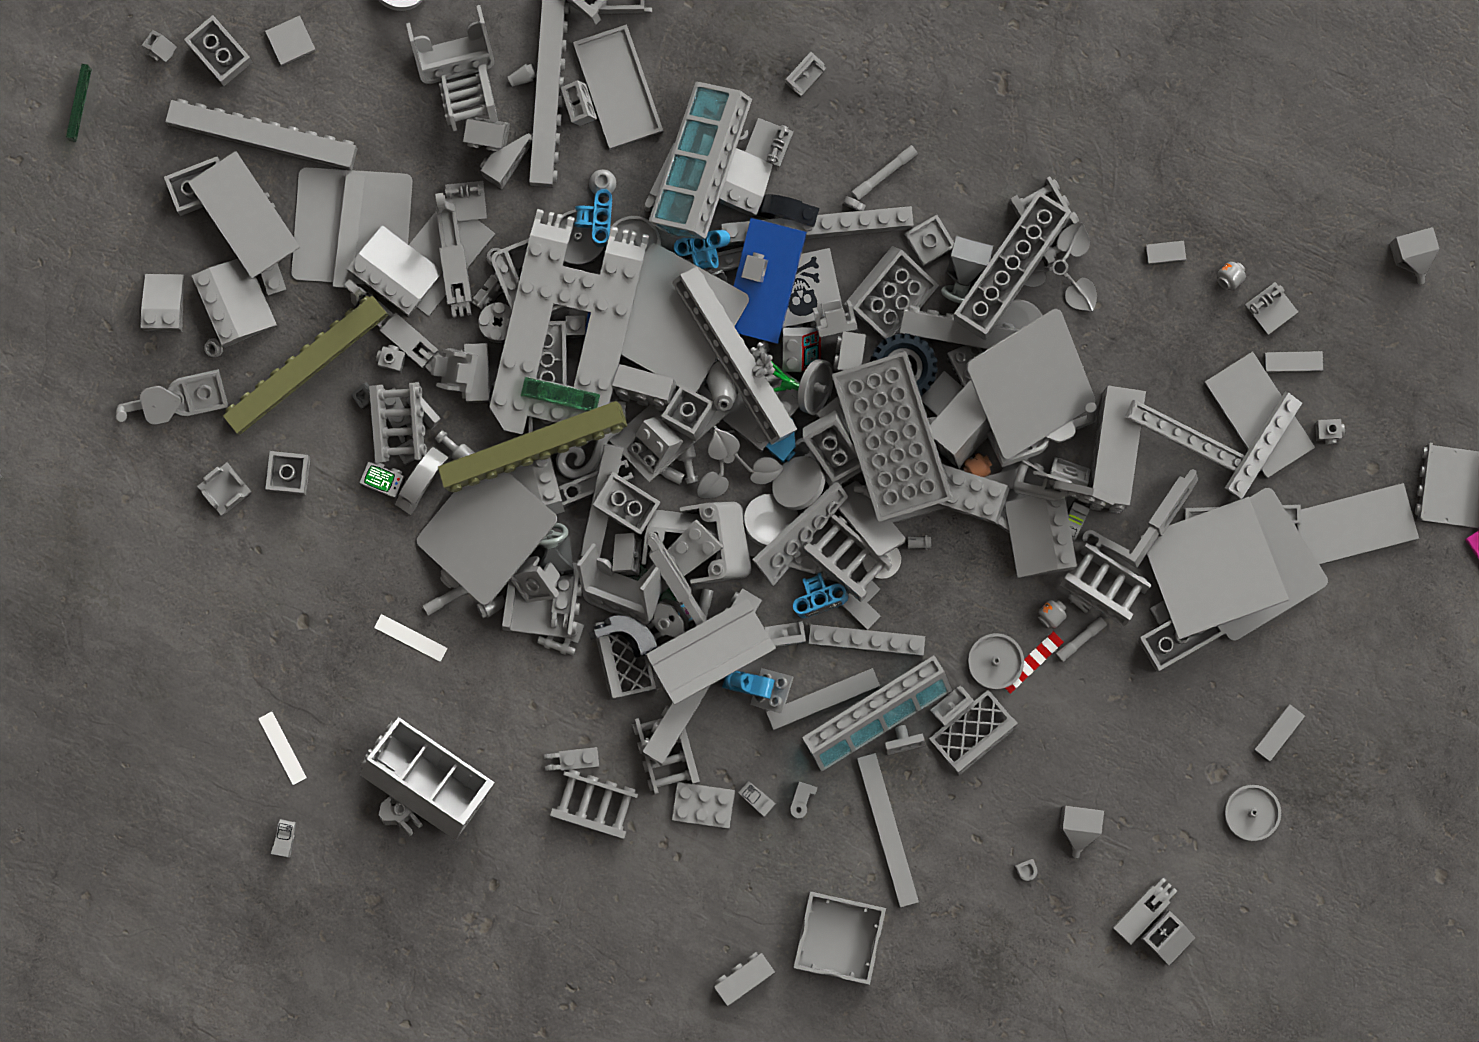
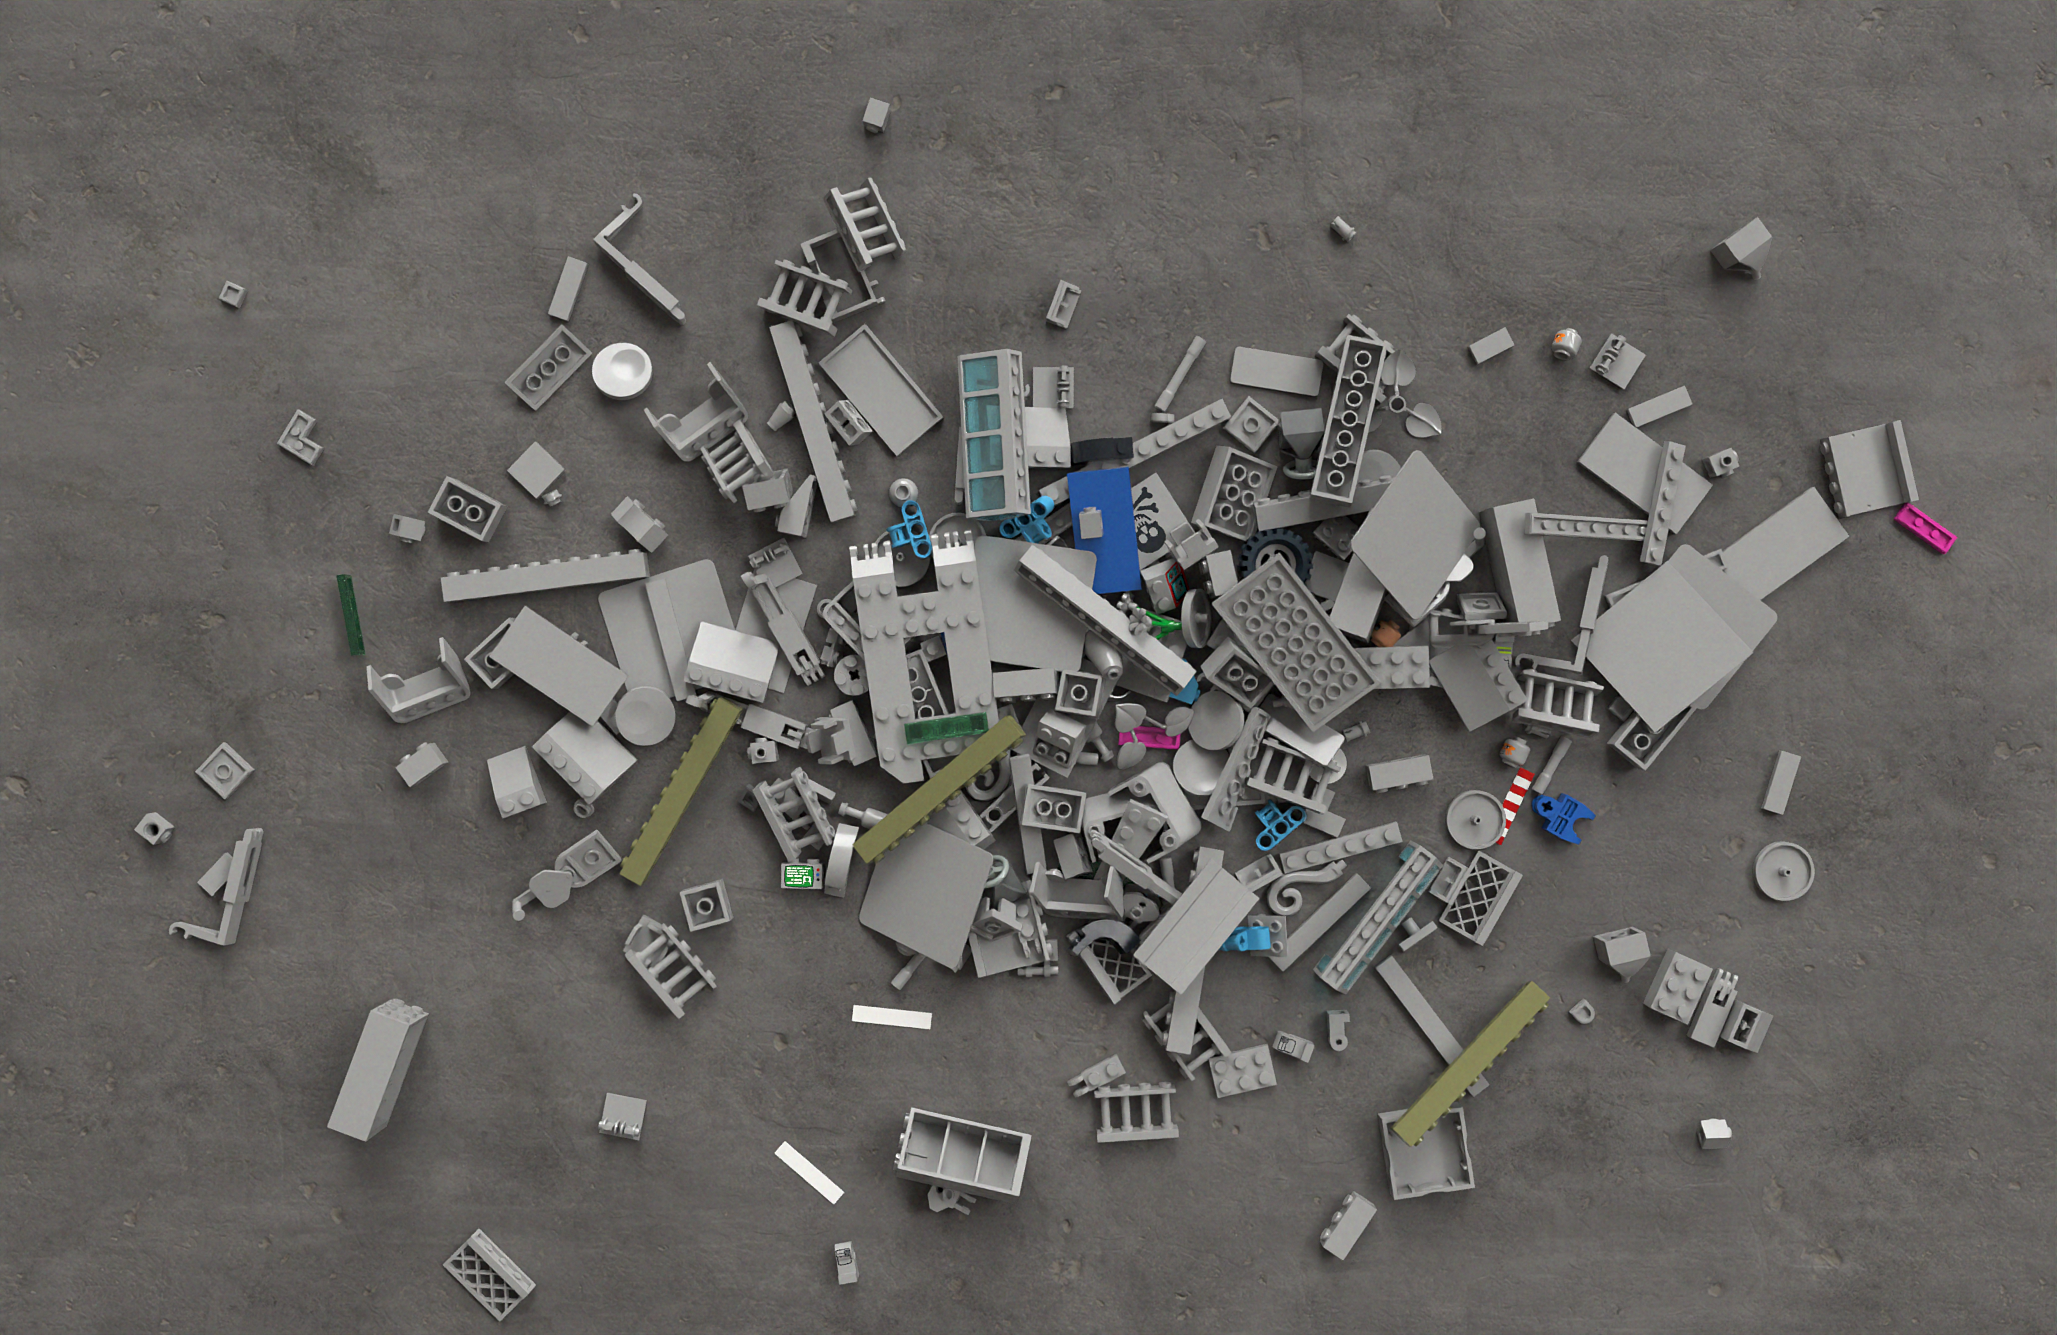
camera: 15 degrees left, 5 degrees up
(87, 254) = (421, 764): none -> light grey brick
(116, 194) = (424, 692): none -> light grey windscreen
(137, 633) = (622, 1116): none -> light grey hinge
(215, 513) = (663, 989): none -> light grey fence
(294, 69) = (552, 498): none -> light grey plate
(300, 288) = (645, 715): none -> light grey piece
(361, 120) = (639, 523): none -> light grey brick
(737, 478) = (1151, 737): none -> dark pink tile
(847, 658) = (1322, 876): none -> light grey plant
(907, 871) = (1470, 1063): none -> olive brick
(943, 593) = (1399, 773): none -> light grey brick
(969, 203) = (1276, 371): none -> light grey piece
(1070, 678) = (1561, 815): none -> blue piece
(1074, 102) = (1343, 229): none -> light grey pin
(1102, 1022) = (1714, 1134): none -> brick
(1119, 877) = (1677, 986): none -> light grey brick

